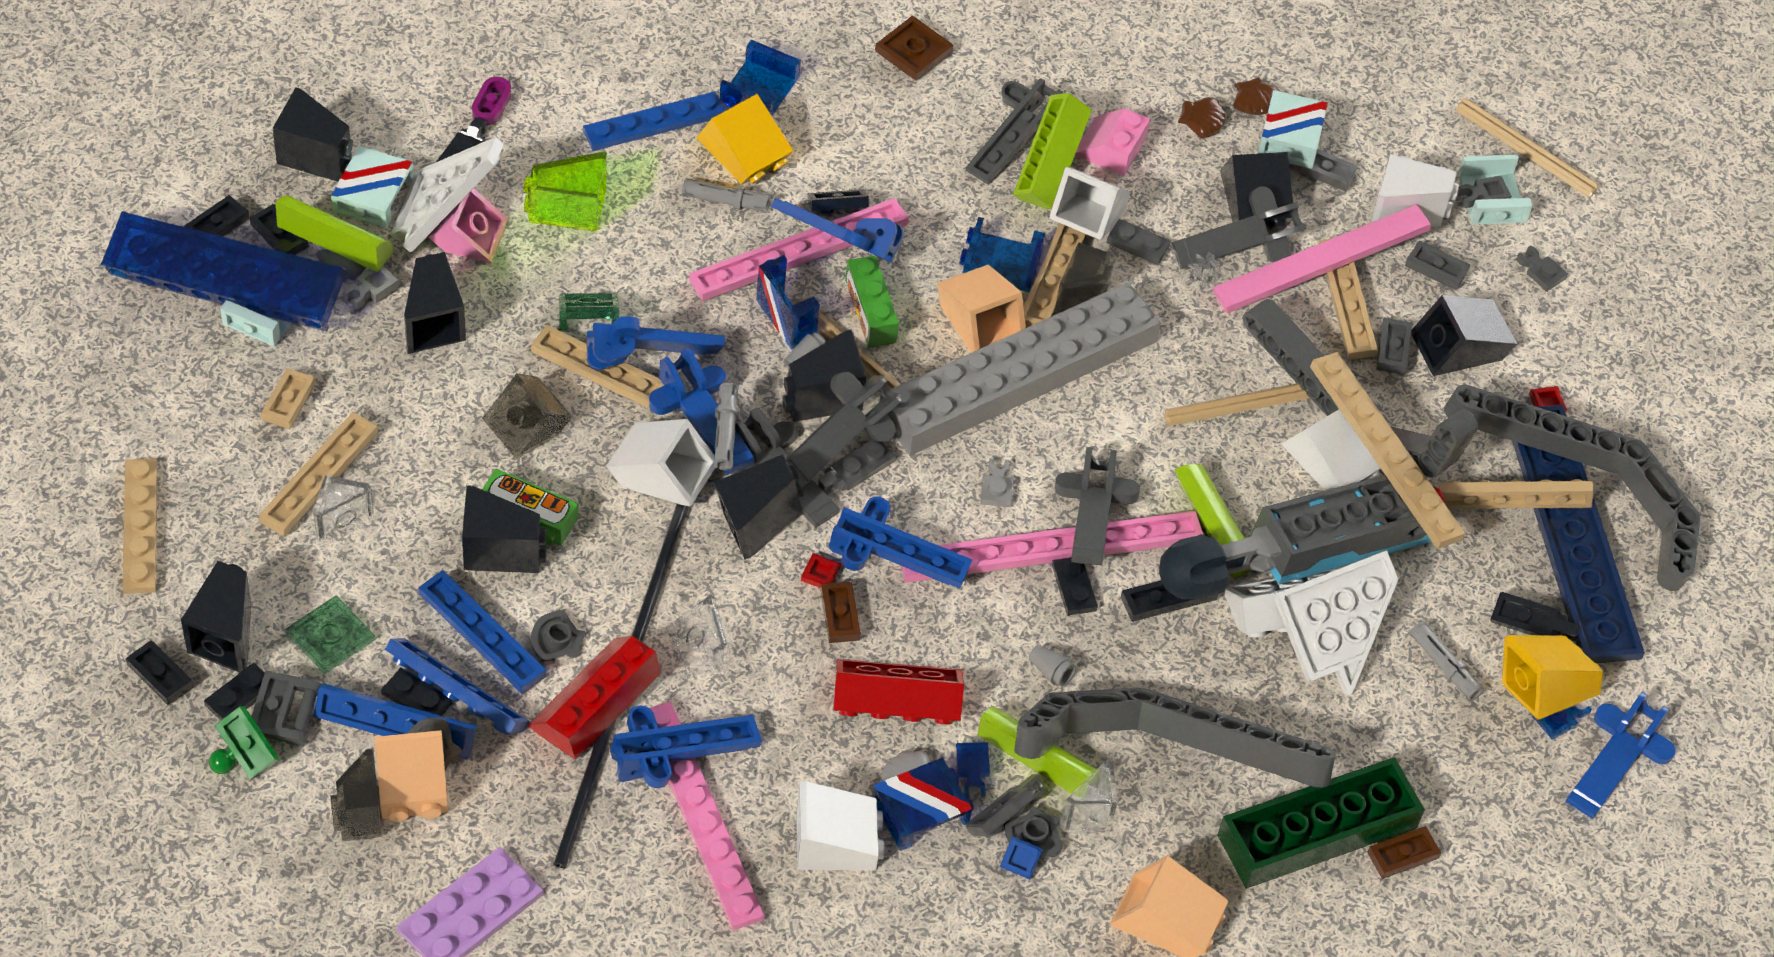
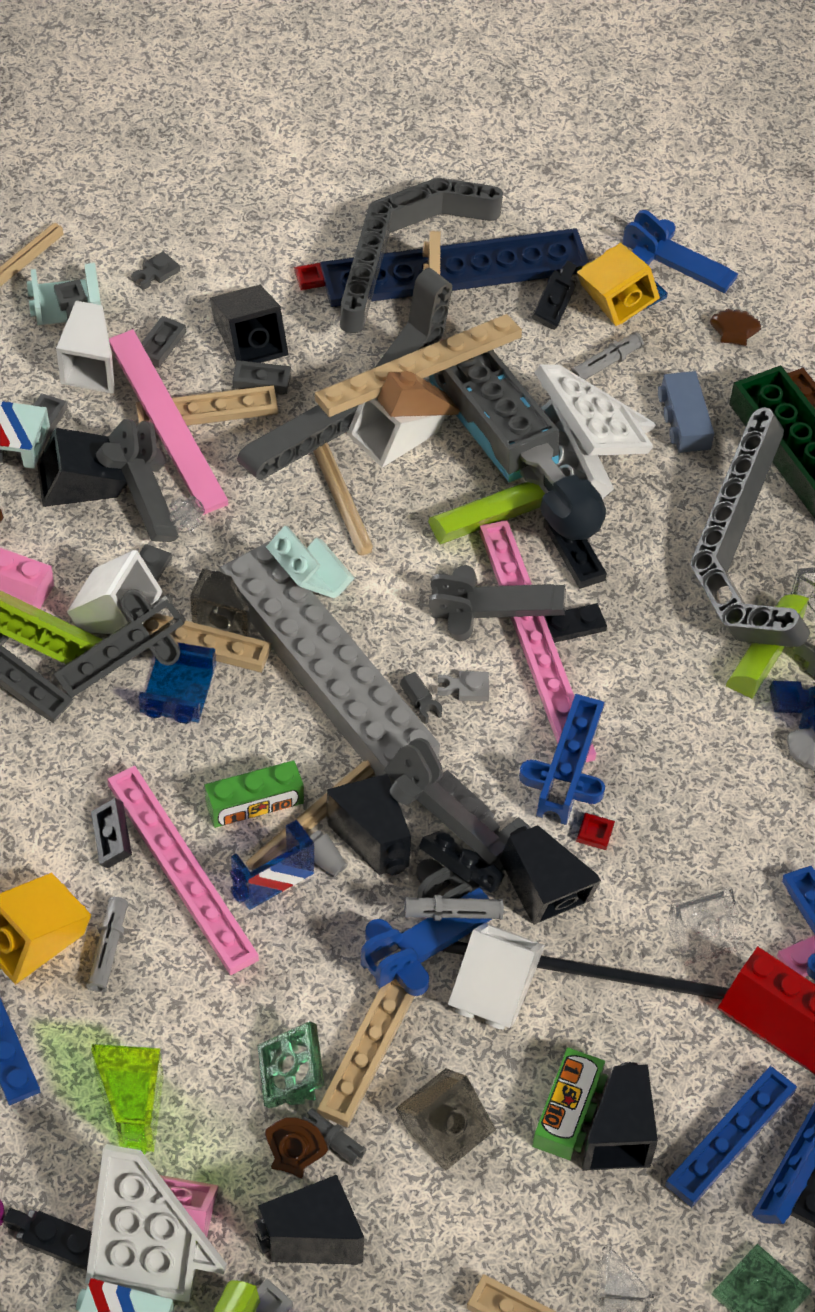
camera: 90 degrees left, 0 degrees up
(516, 309) = (295, 1145): none -> reddish brown animal
(520, 337) = (336, 1138): none -> dark grey pin
(555, 637) = (721, 1065): dark grey animal -> none
(613, 343) = (347, 1003): blue piece -> none
(786, 439) = (461, 861): none -> black hinge
(840, 612) = (644, 809): reddish brown plate -> none
(872, 235) = (184, 784): blue piece -> none
(898, 691) = (724, 756): red slope -> none
(982, 306) = (253, 695): light nougat slope -> none
(983, 444) = (420, 696): none -> dark grey bar
(1036, 205) = (124, 644): none -> dark grey piece
(1054, 666) = (672, 635): light grey cone -> none
(1129, 352) = (310, 567): none -> light aqua panel
(1345, 443) = (413, 396): none -> medium nougat slope
(1366, 723) = (686, 412): none -> sand blue brick
(1507, 798) = (735, 326): none -> reddish brown animal

